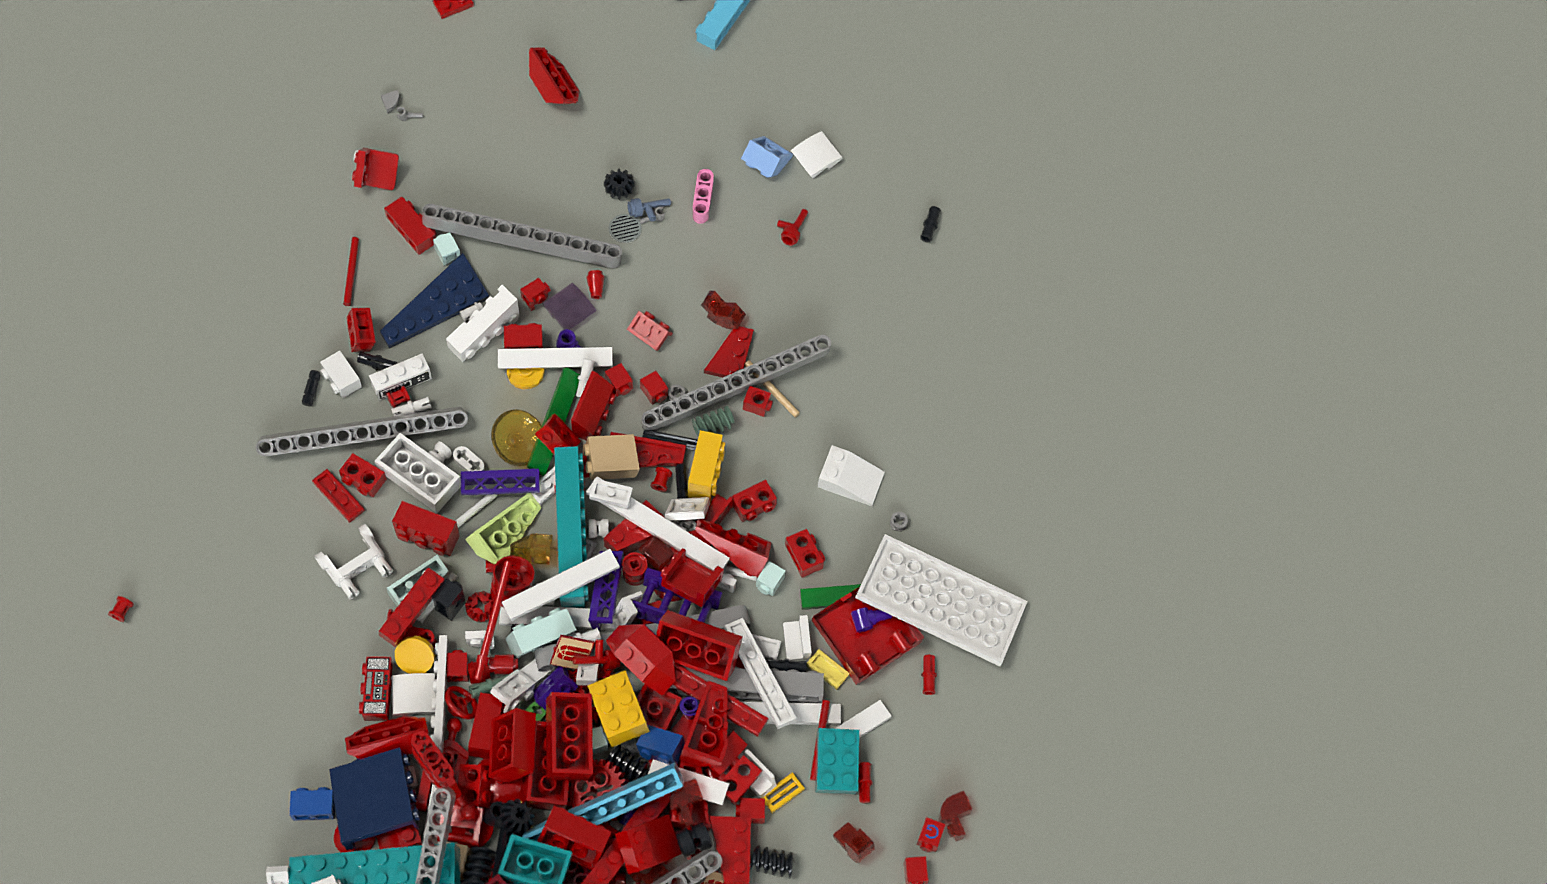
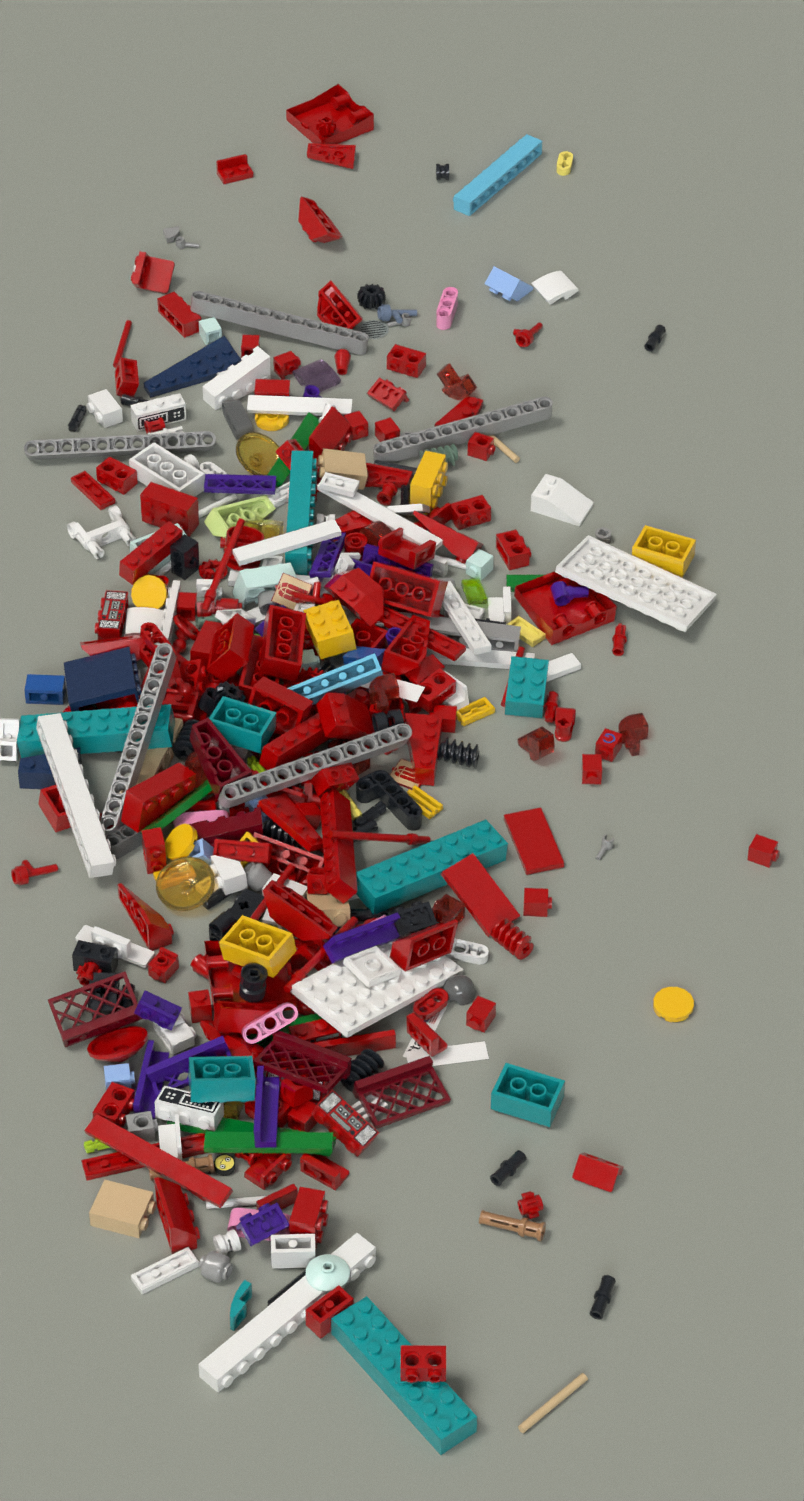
camera: 10 degrees right, 20 degrees down
(488, 379) = (237, 418): none -> dark grey beam
(493, 270) = (249, 342): none -> red brick
(585, 210) = (336, 308): none -> red wedge
(667, 275) = (406, 361): none -> red brick
(767, 617) = (474, 591): none -> clear neon green tile
(880, 802) = (564, 723): none -> red piece
(967, 546) = (665, 550): none -> yellow brick

